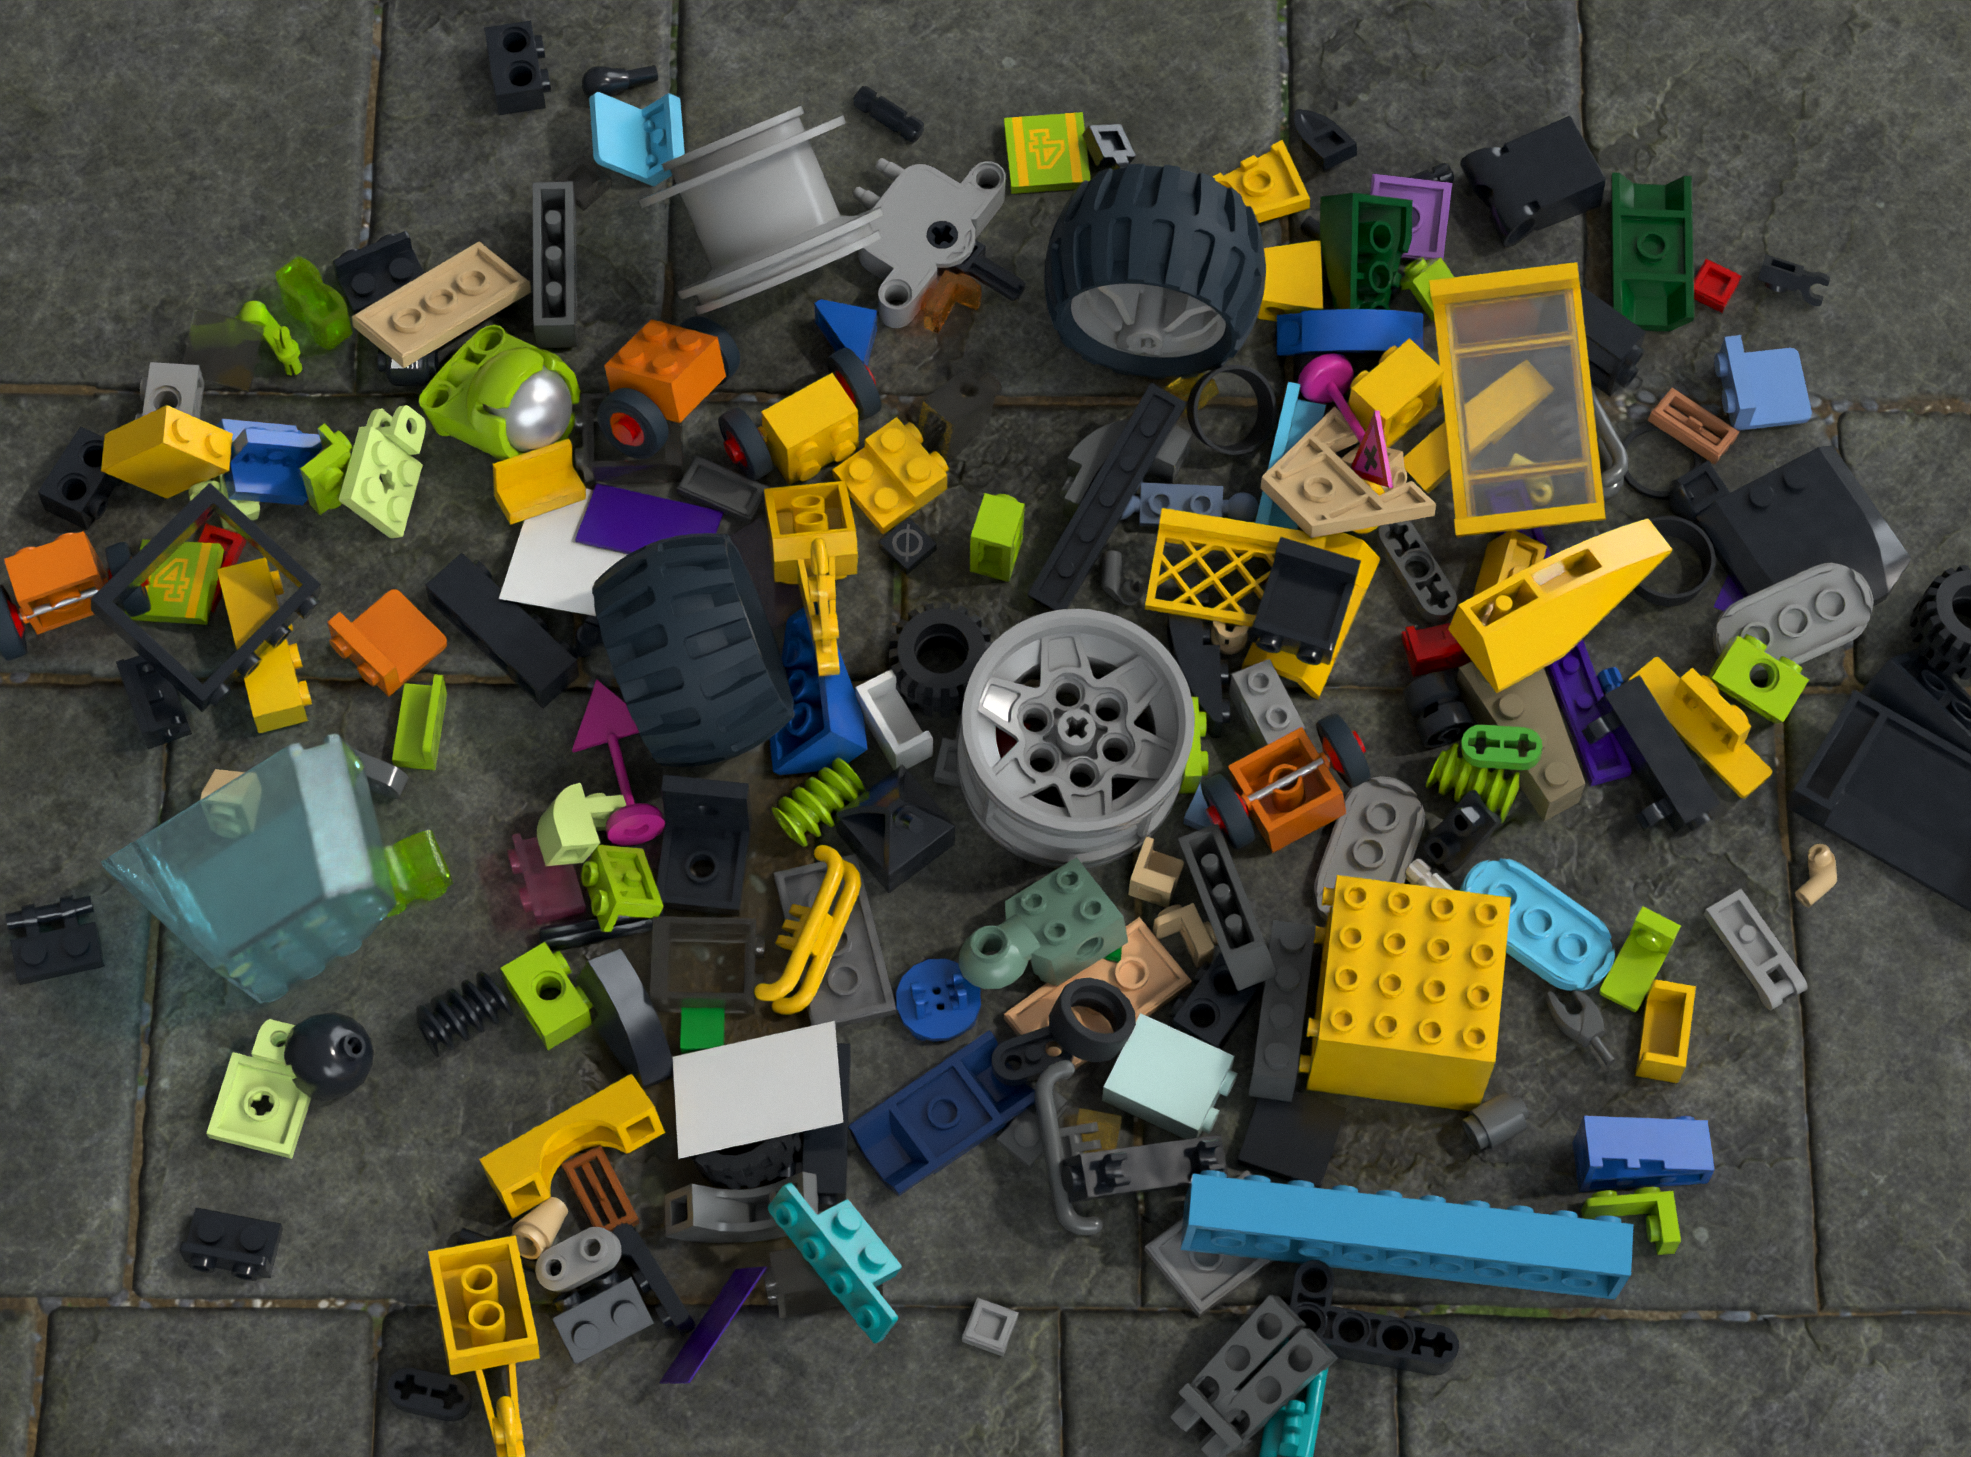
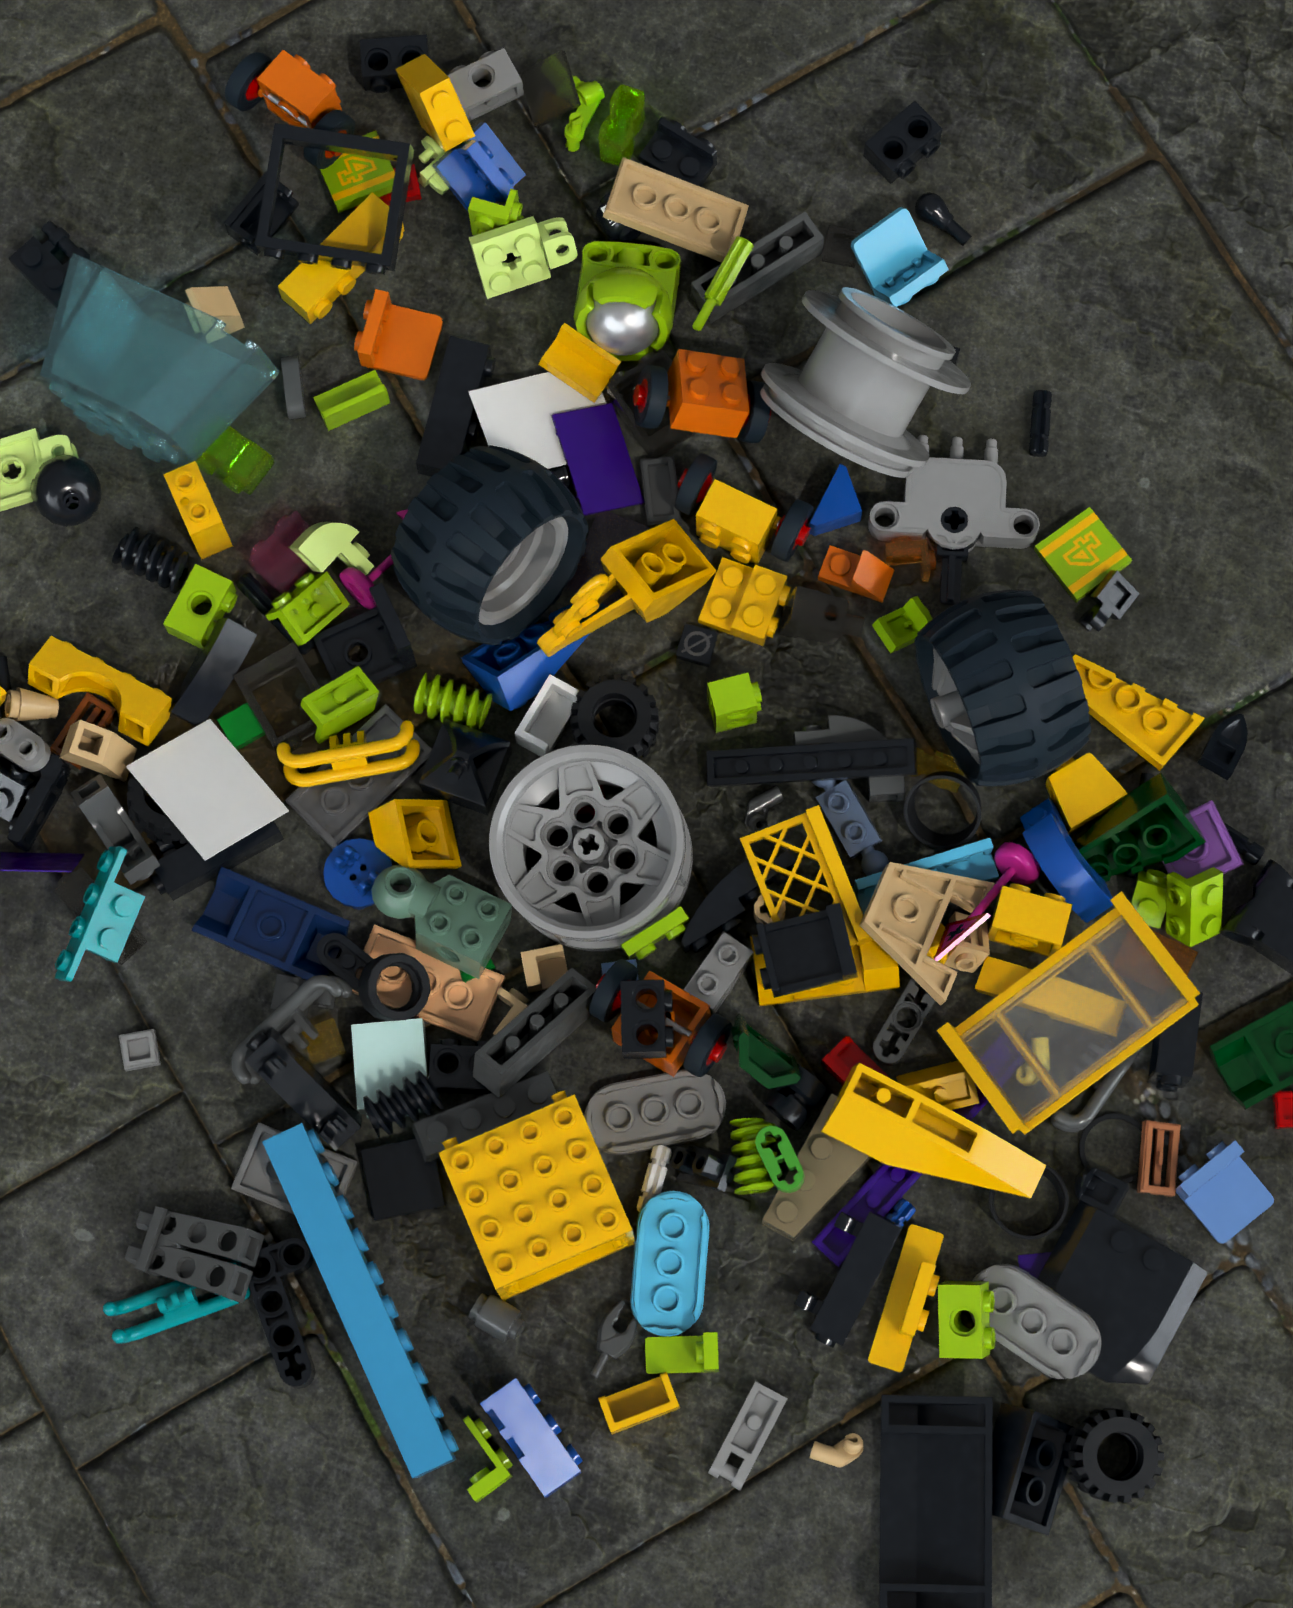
camera: 65 degrees right, 10 degrees up
(443, 921) = (198, 510): none -> yellow window
(553, 290) = (723, 279): none -> lime axle
(636, 1181) = (98, 750): none -> tan slope
(749, 905) = (340, 703): none -> lime panel
(934, 358) = (856, 573): none -> orange slope
(934, 918) = (416, 833): none -> yellow slope
(1015, 342) = (902, 625): none -> lime bracket
(1222, 1073) = (402, 1103): none -> black piece
(1278, 795) = (636, 1019): none -> black brick
(1382, 697) = (763, 1058): none -> dark green piece
(1465, 243) = (1194, 906): none -> lime bracket

